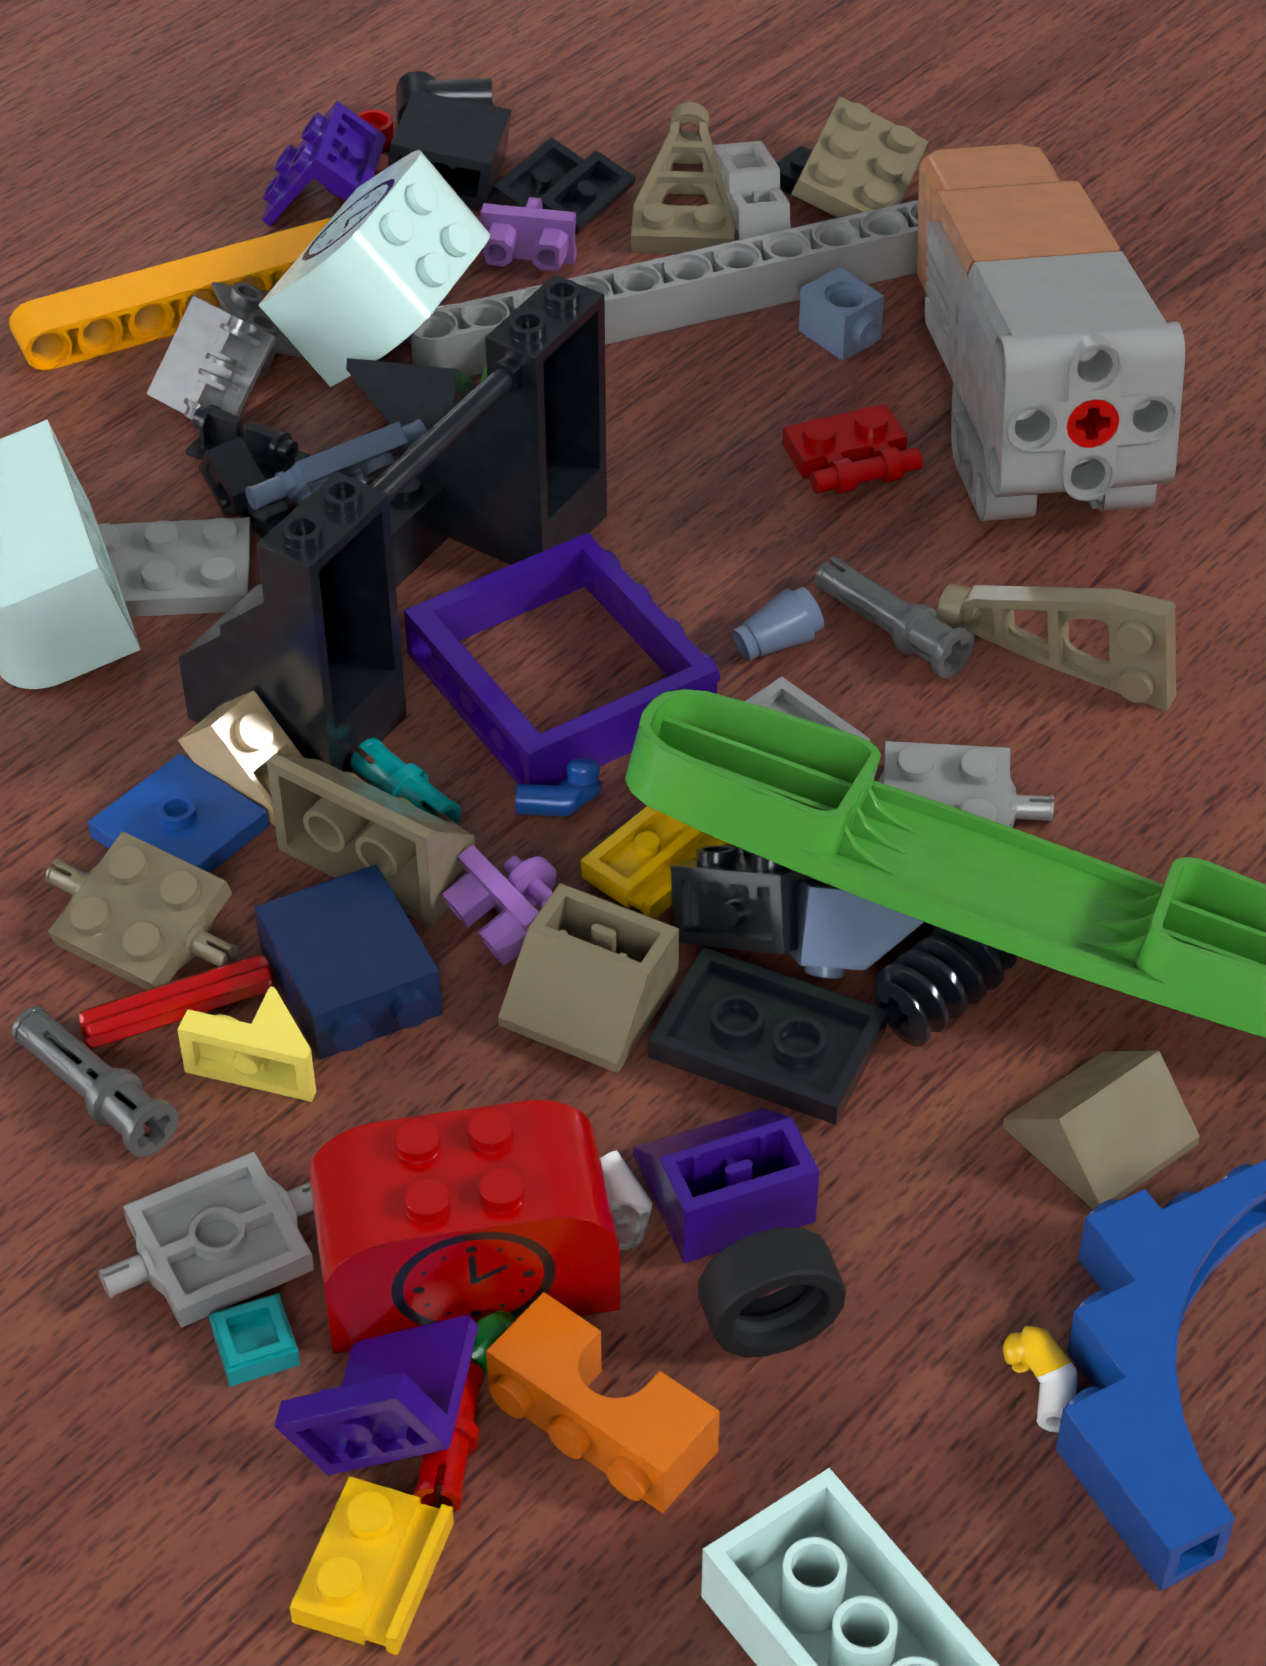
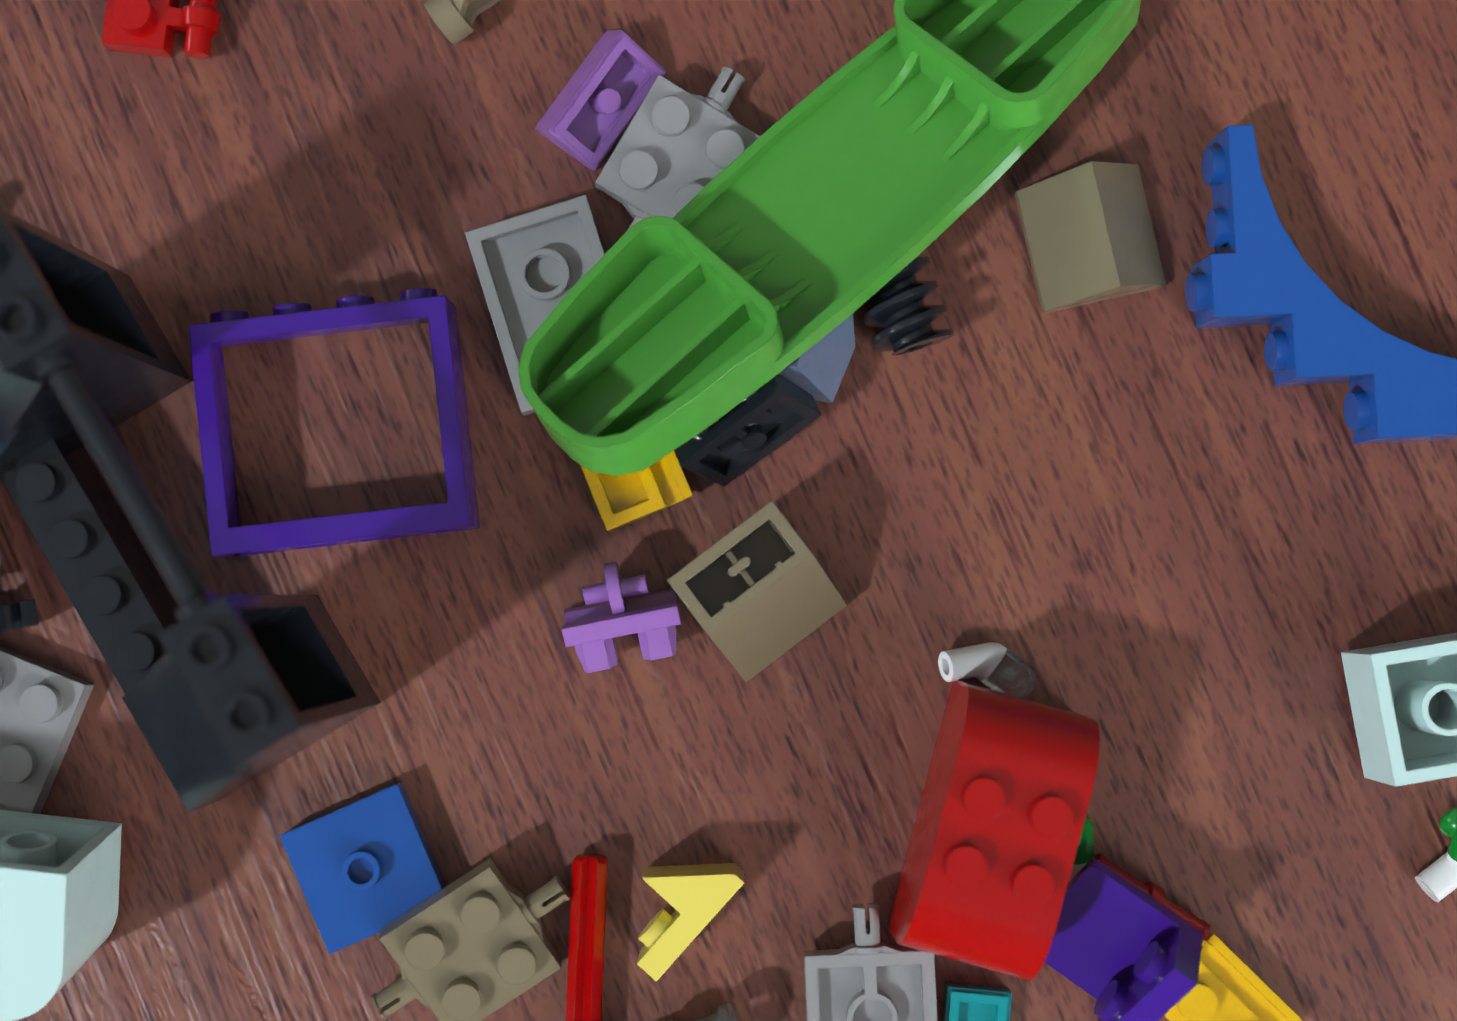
camera: 65 degrees left, 40 degrees up
(236, 746) = (329, 774): tan slope -> none
(348, 961) = (624, 788): dark blue brick -> none
(349, 825) = (482, 704): dark tan slope -> none
(402, 780) = (424, 642): teal pin -> none
(565, 797) = (505, 500): blue arm -> none
(642, 1442) = (1231, 763): orange arch -> none
(730, 1181) = (1015, 575): dark purple slope -> none
(758, 1265) = (1165, 605): black tyre -> none
(768, 1035) = (875, 461): black plate -> none
(779, 625) = (386, 195): sand blue cone -> none
(912, 627) = (453, 72): dark grey pin -> none
(966, 724) = (600, 98): none -> medium lavender slope
(1057, 1375) = (1301, 413): arm -> none

